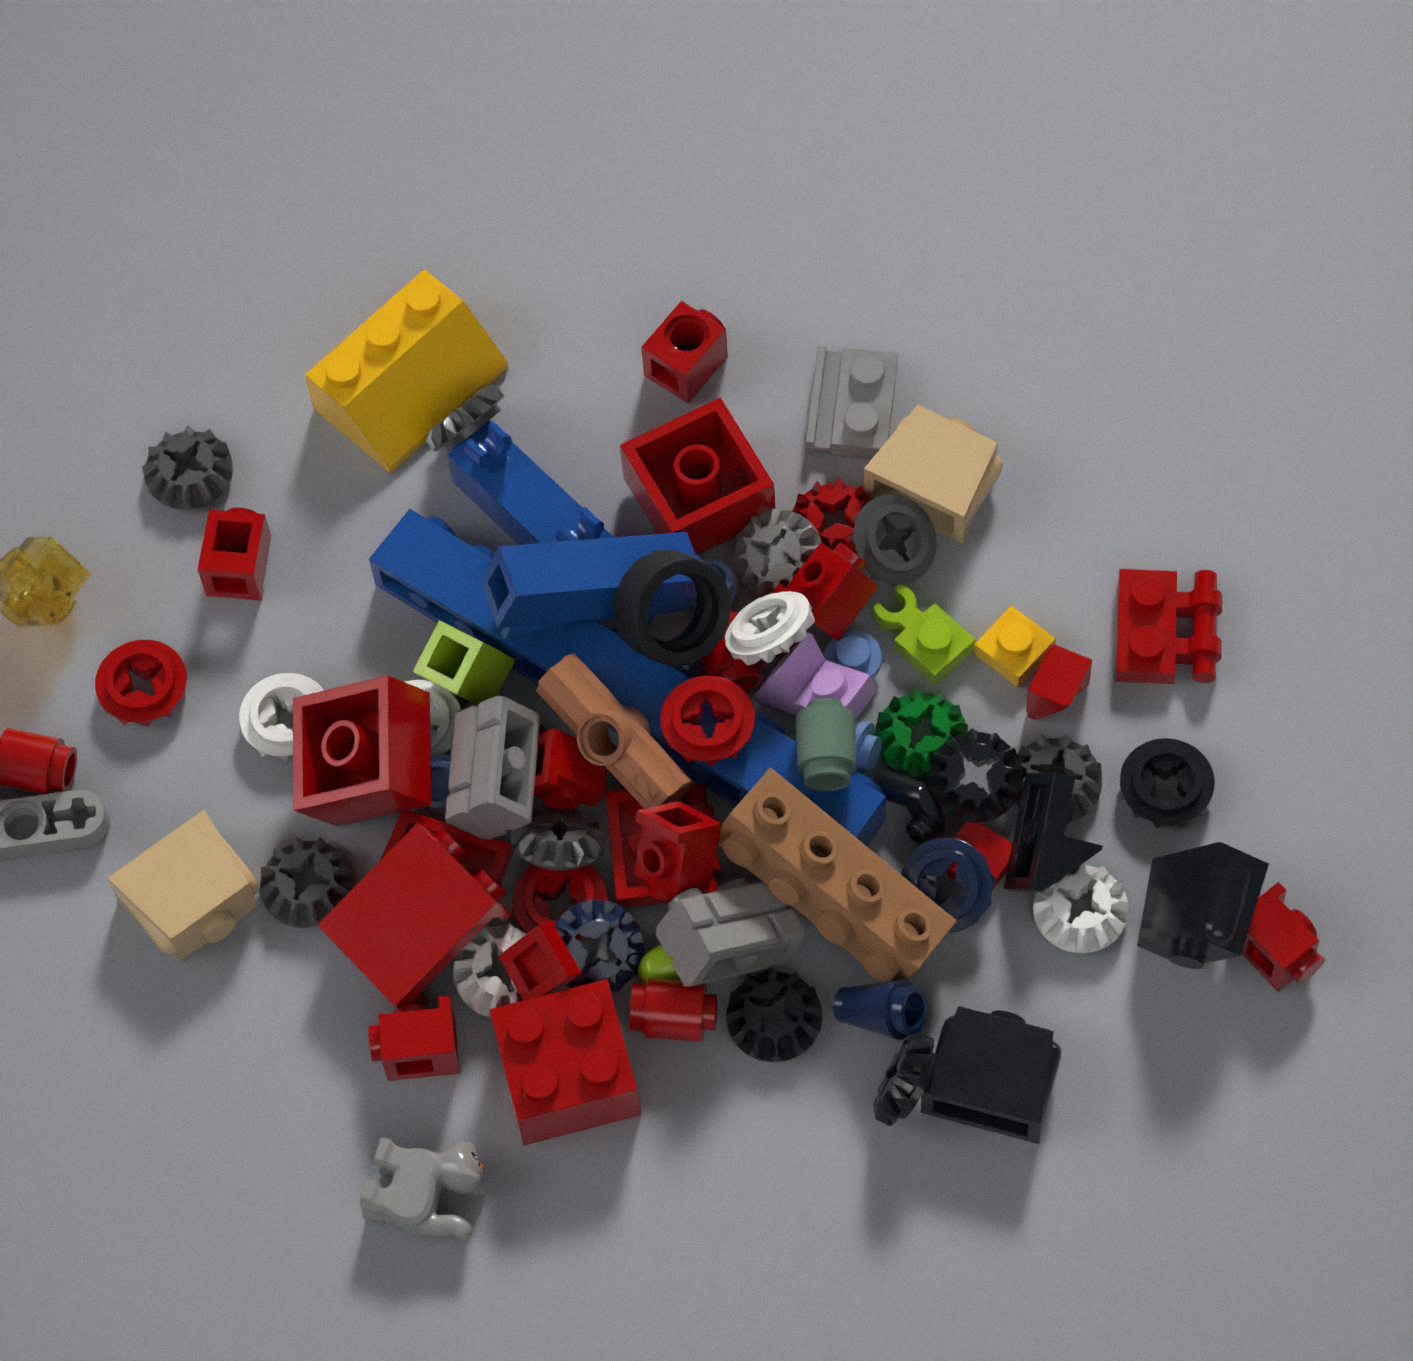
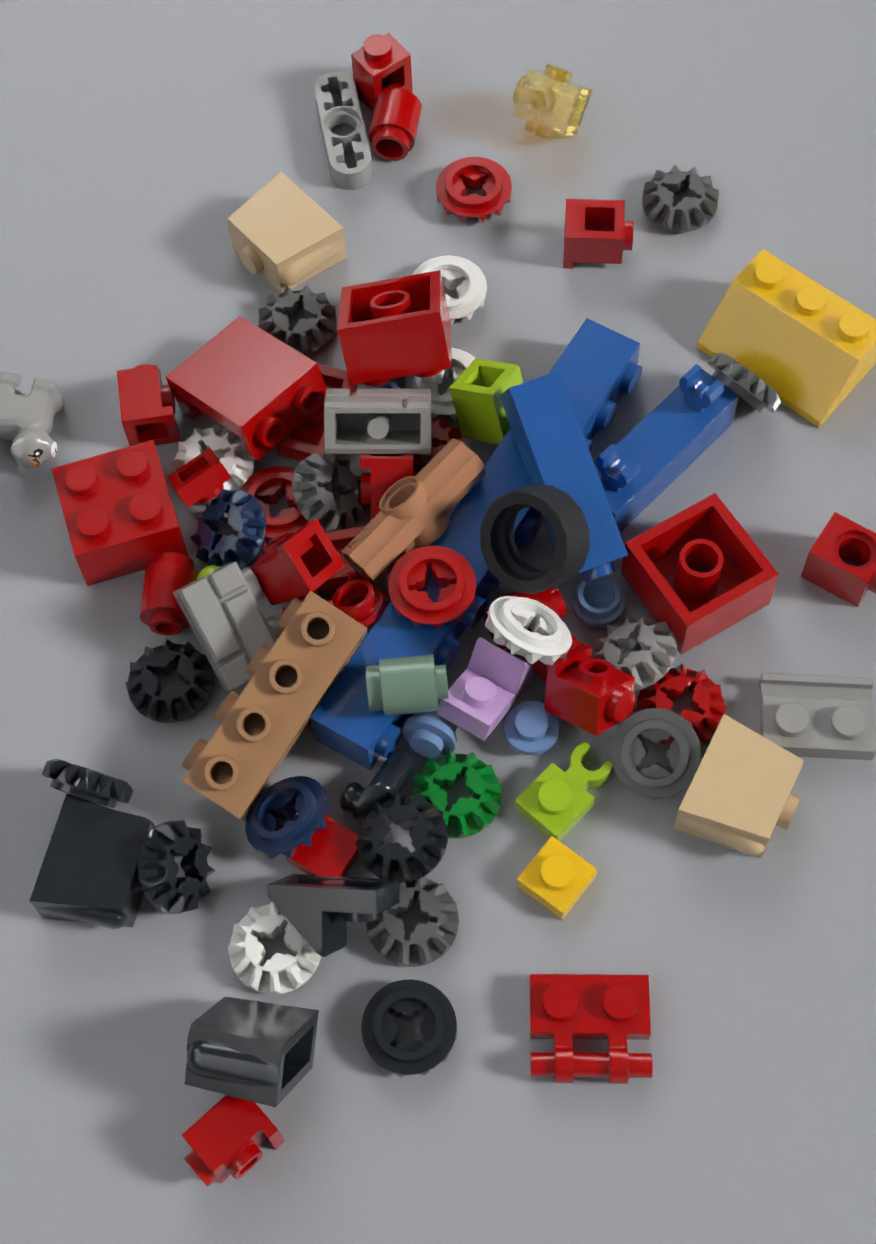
camera: 85 degrees right, 0 degrees up
(710, 786) = (360, 601): none -> red plate
(883, 1007) = (158, 768): dark blue cone -> none
(1001, 989) = (159, 870): none -> black gear
(1057, 682) = (508, 910): red slope -> none

